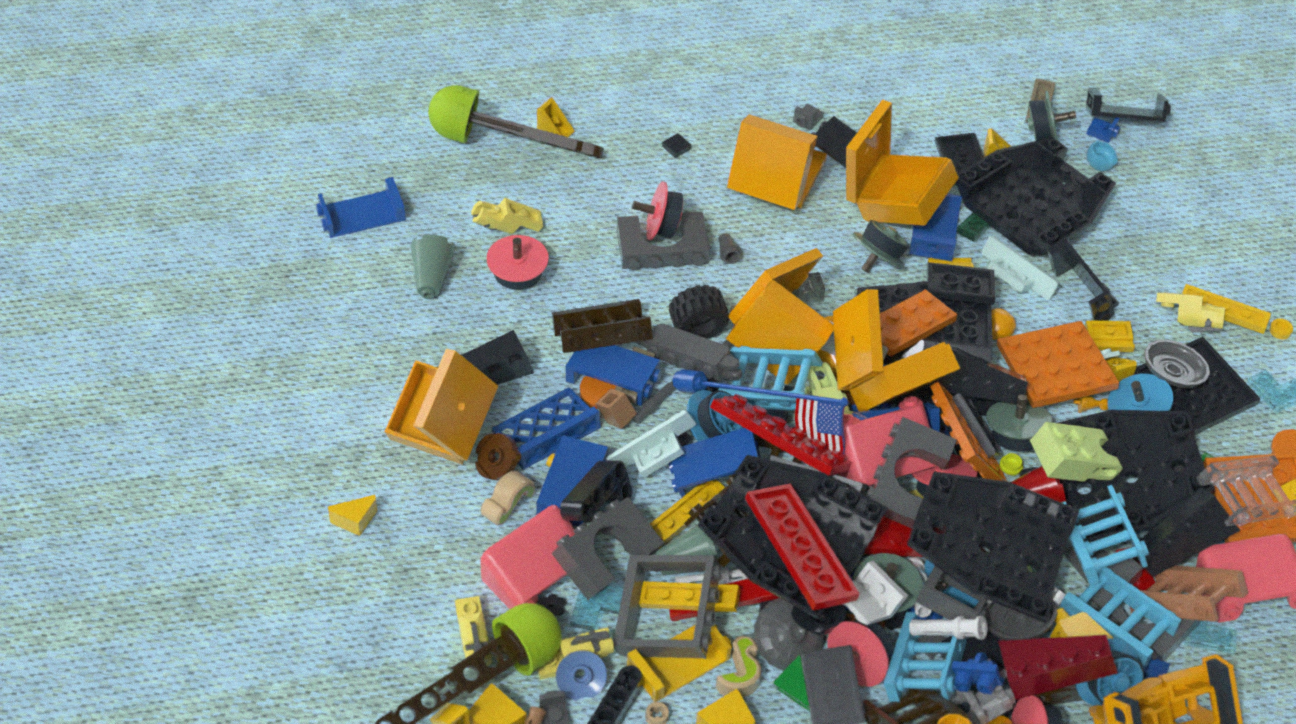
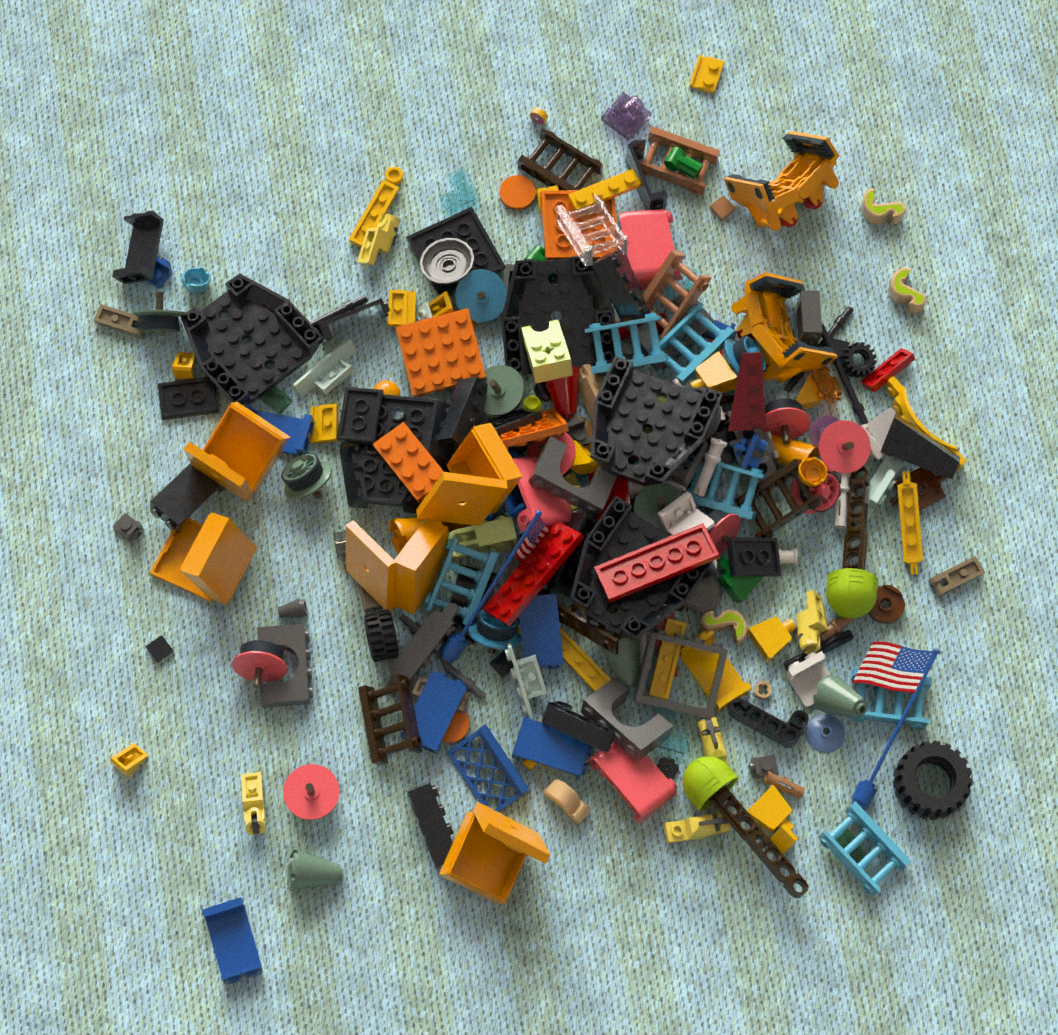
camera: 90 degrees left, 20 degrees up
(353, 514) = (583, 927): yellow slope -> none
(454, 113) = (124, 848): piece -> none
(508, 456) = (527, 799): reddish brown plate -> none
(587, 685) = (735, 744): medium blue dish -> none
(616, 408) = (478, 710): medium nougat brick -> none

